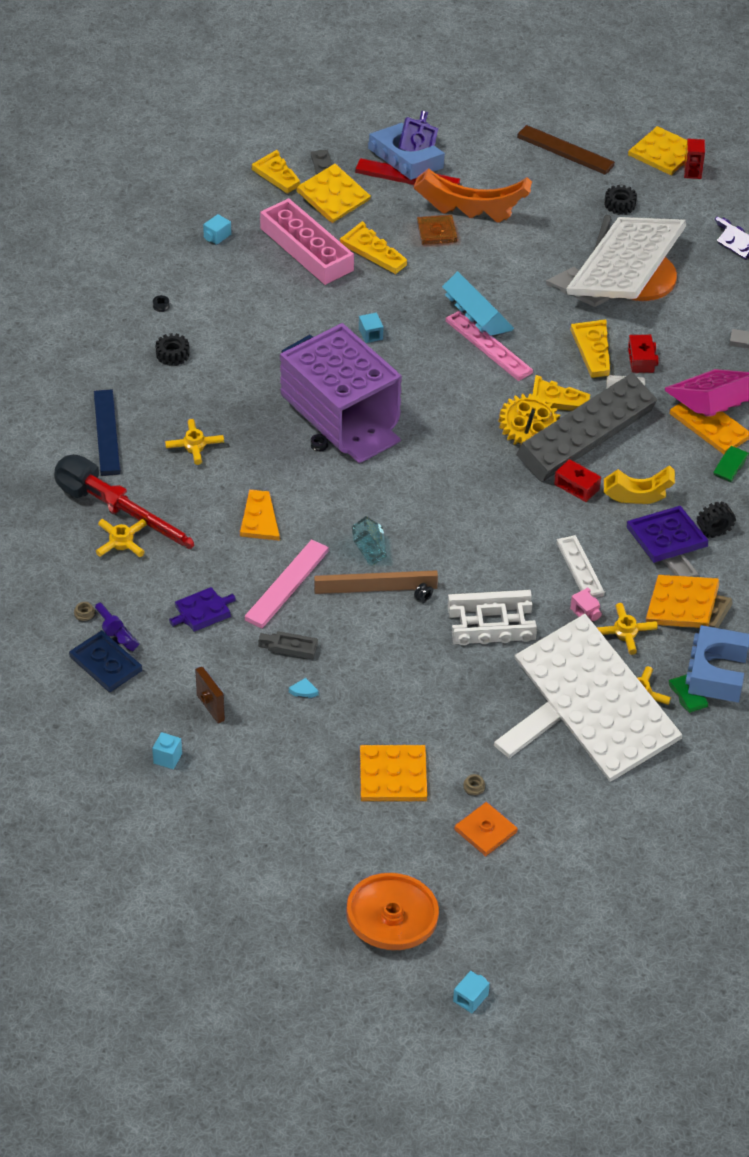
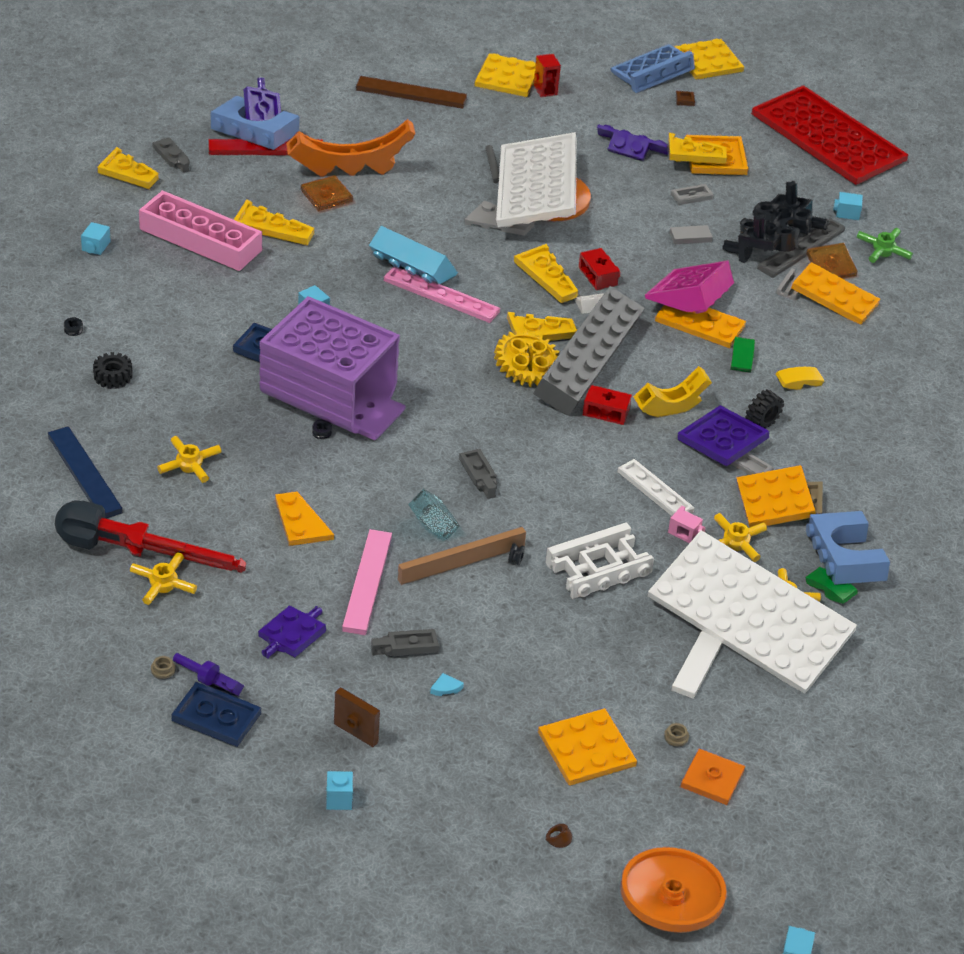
camera: 25 degrees left, 5 degrees down
(329, 843) = (563, 839): none -> reddish brown piece
(333, 193) = (200, 178): yellow plate -> none
(432, 512) = (479, 471): none -> dark grey hinge
(625, 205) = (493, 128): black tyre -> none

